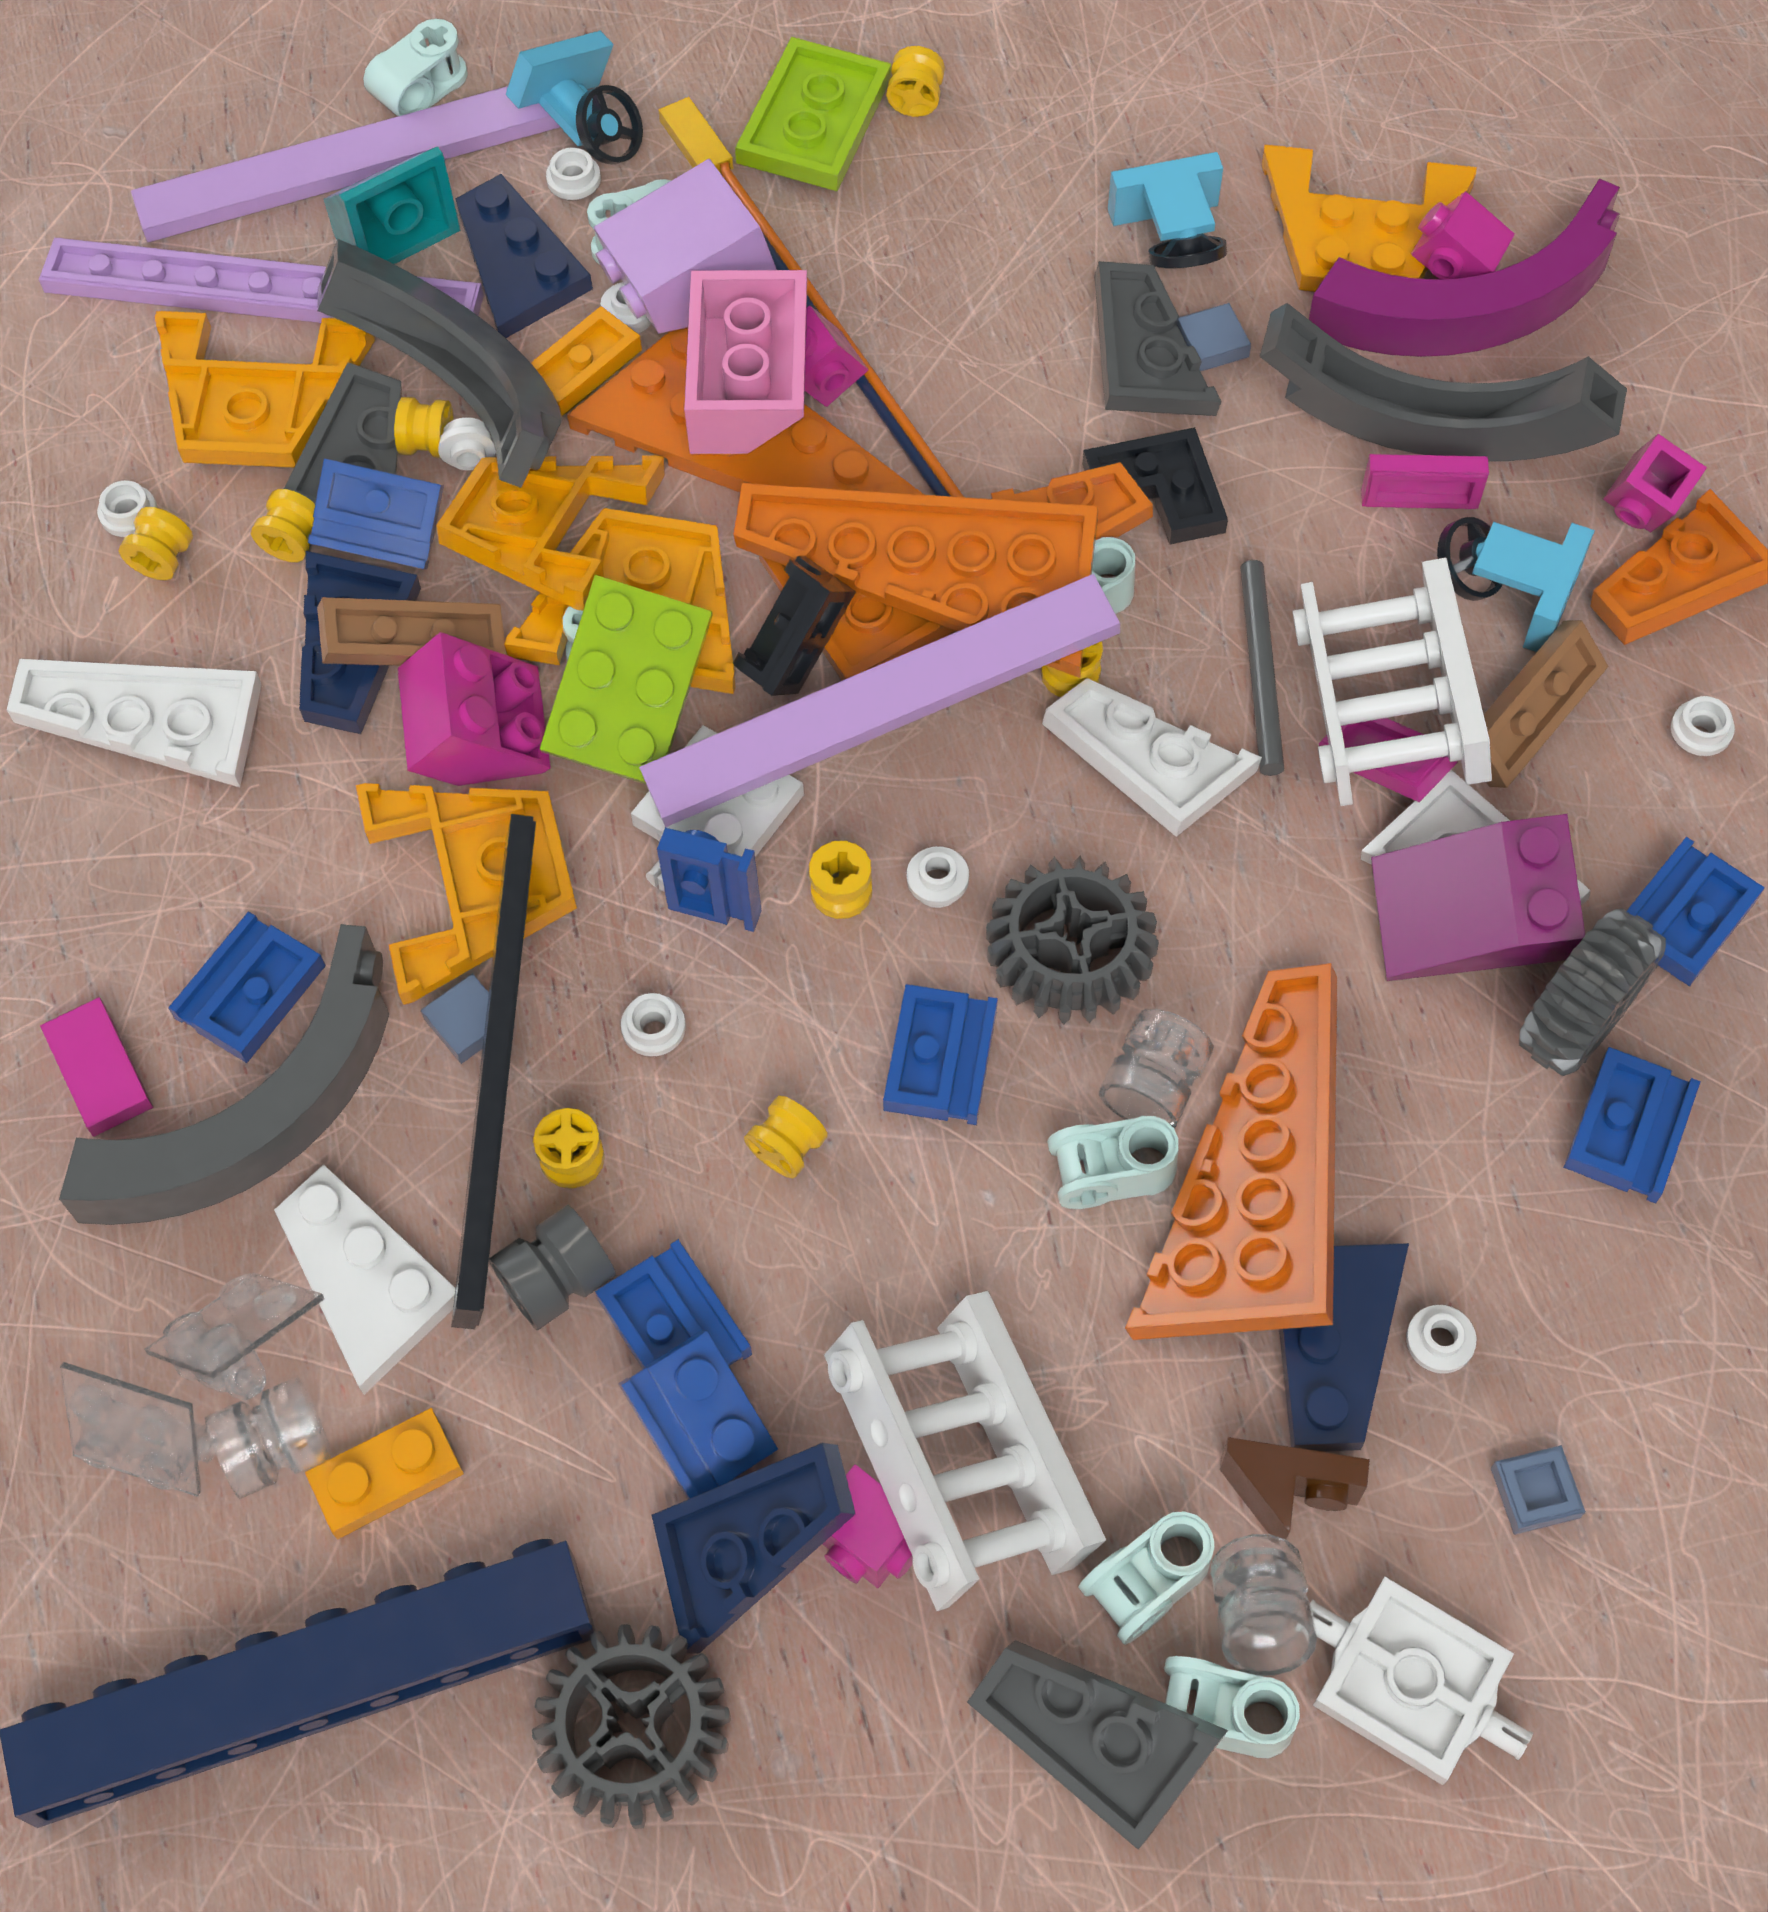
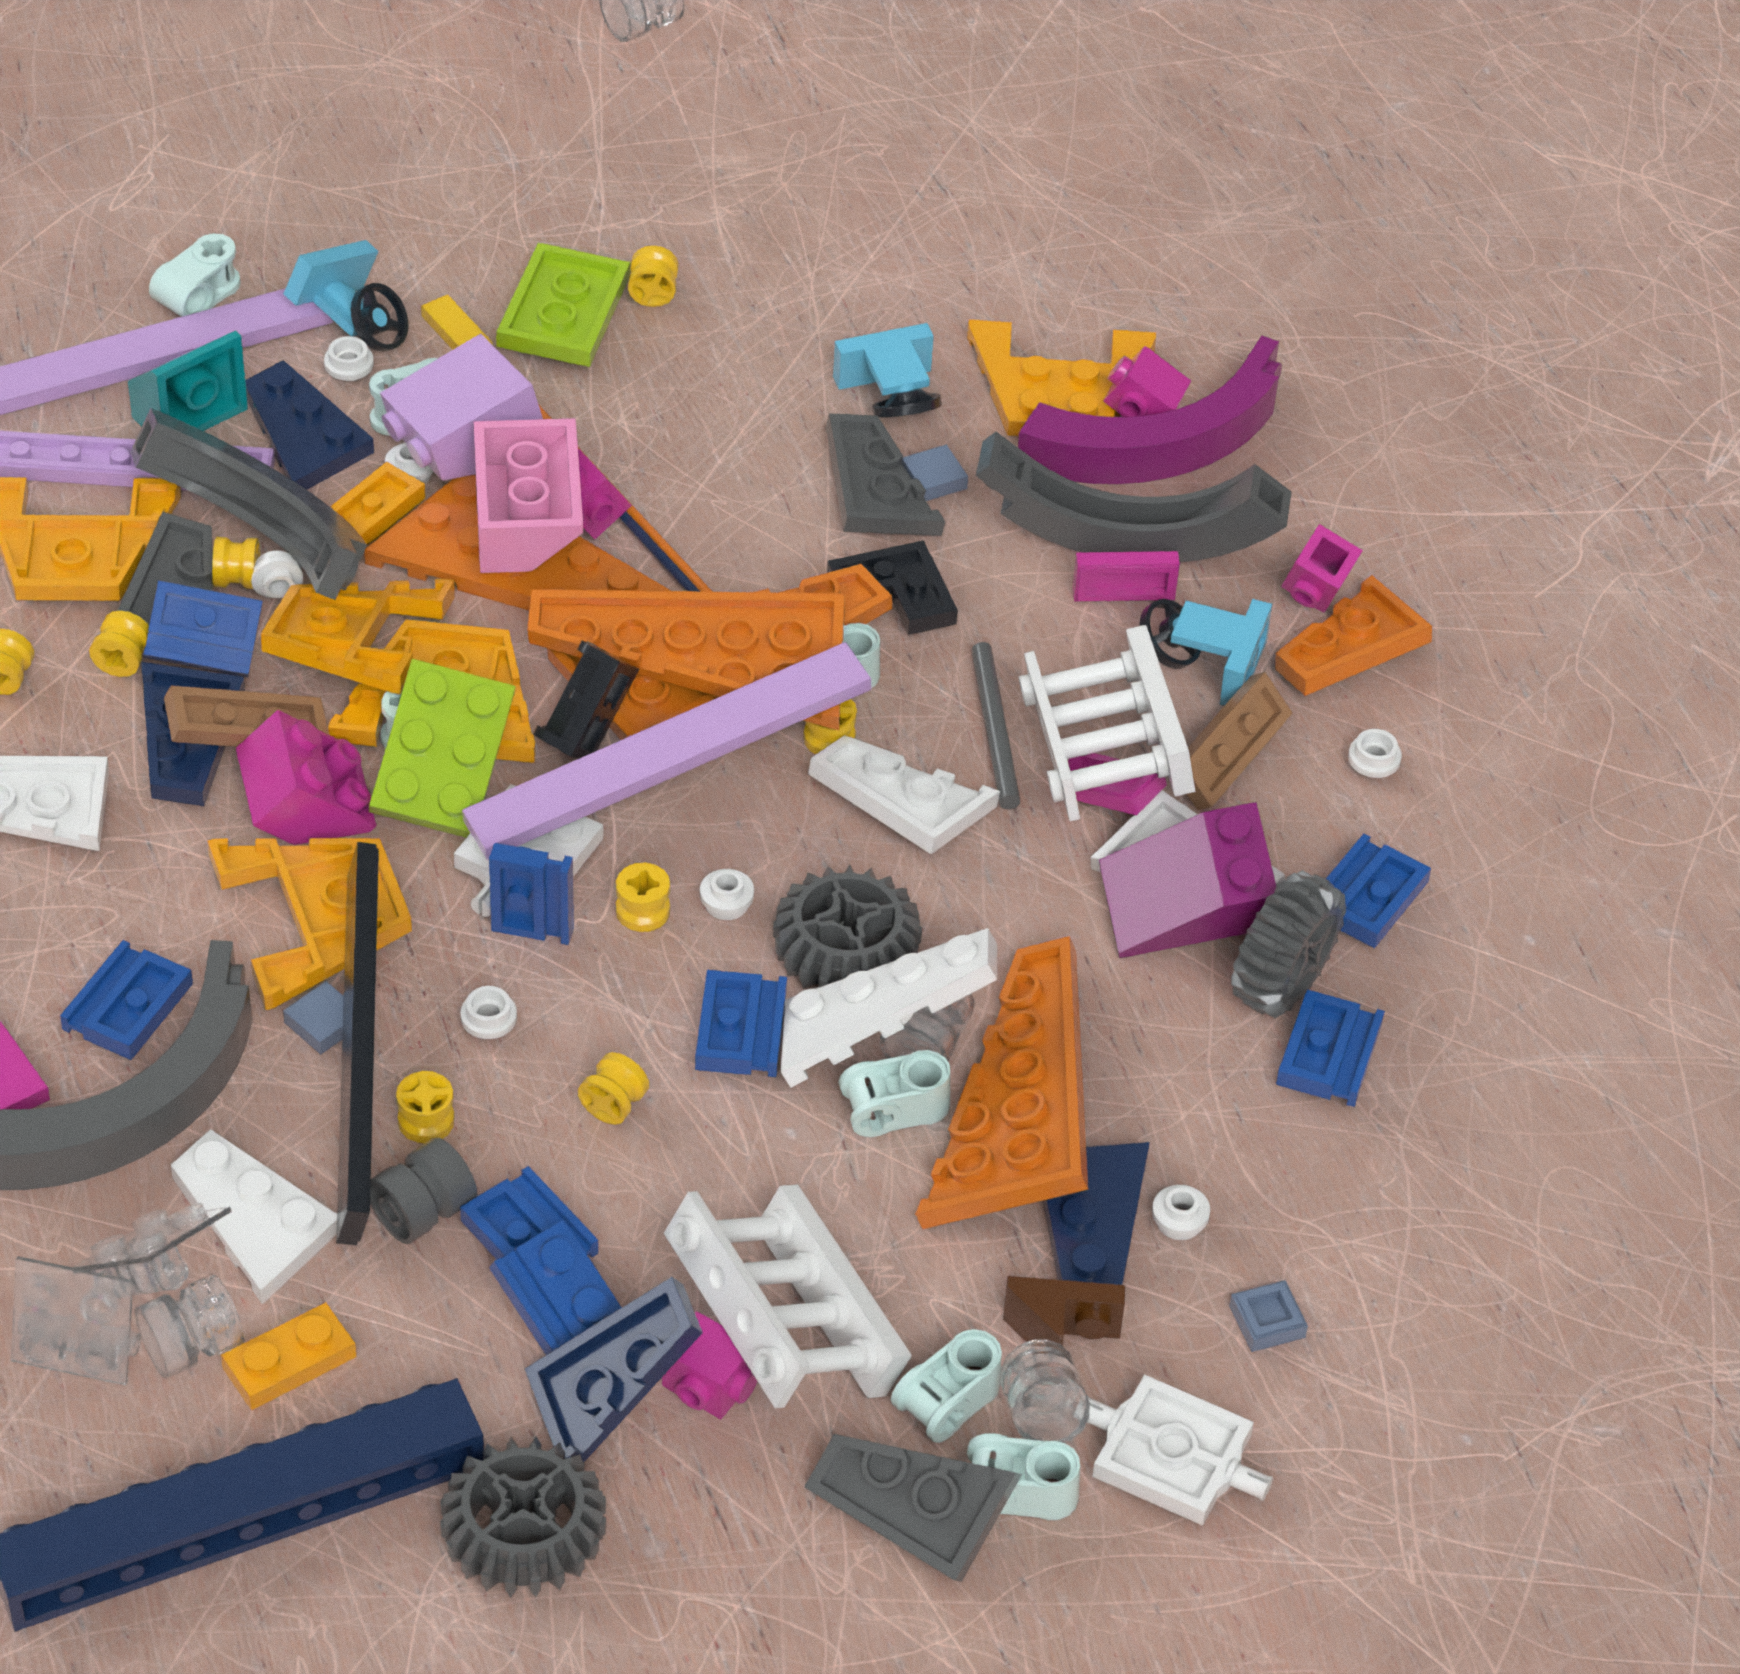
camera: 10 degrees left, 15 degrees down
(1102, 1047) = (883, 999): none -> white wing

